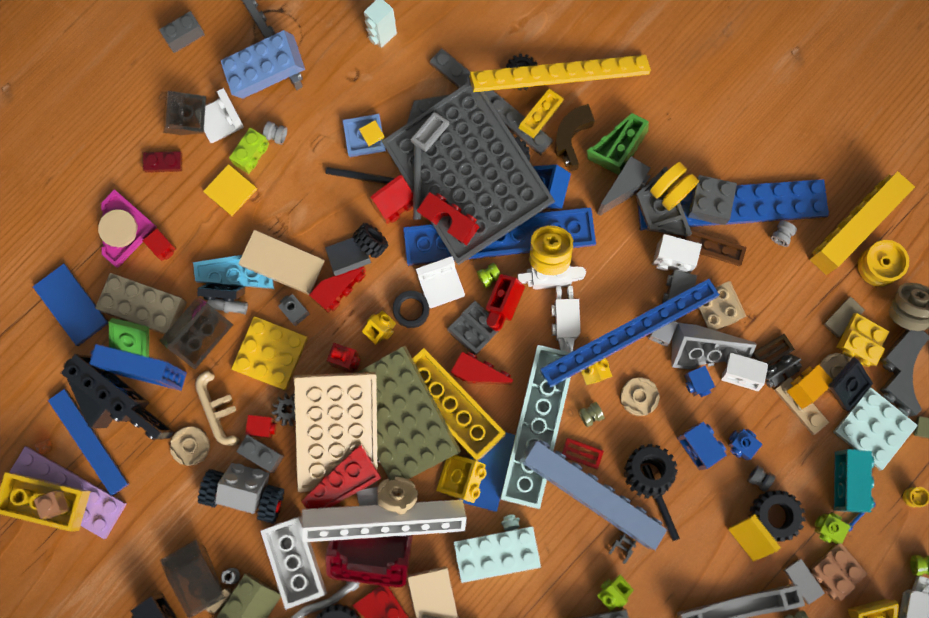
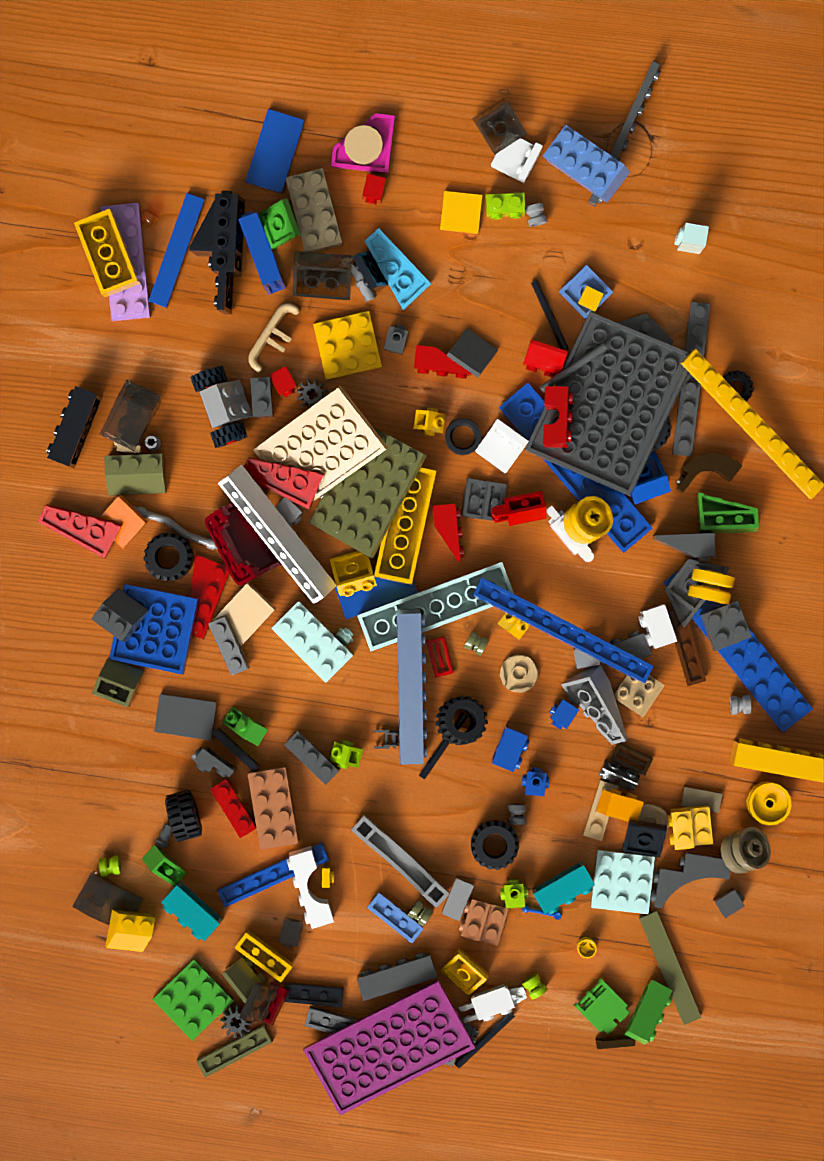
camera: 50 degrees right, 10 degrees up
(51, 504) = (111, 266): nougat brick -> none
(162, 161) = (446, 136): dark red plate -> none
(182, 32) = (570, 69): dark grey brick -> none
(190, 446) = (229, 335): tan tile -> none
(281, 262) = (428, 302): tan tile -> none
(293, 563) = (196, 485): white brick -> none
(343, 358) = (384, 411): red brick -> none
(370, 240) = (496, 363): black tyre -> none
(393, 503) = (297, 537): tan plate -> none
(430, 131) = (622, 349): light grey tile -> none
(488, 275) = (533, 478): lime wheel -> none
(541, 113) = (707, 430): yellow plate -> none
(566, 319) = (541, 572): white hinge -> none
(745, 372) = (597, 746): white panel -> none
(754, 538) = (463, 837): yellow tile -> none

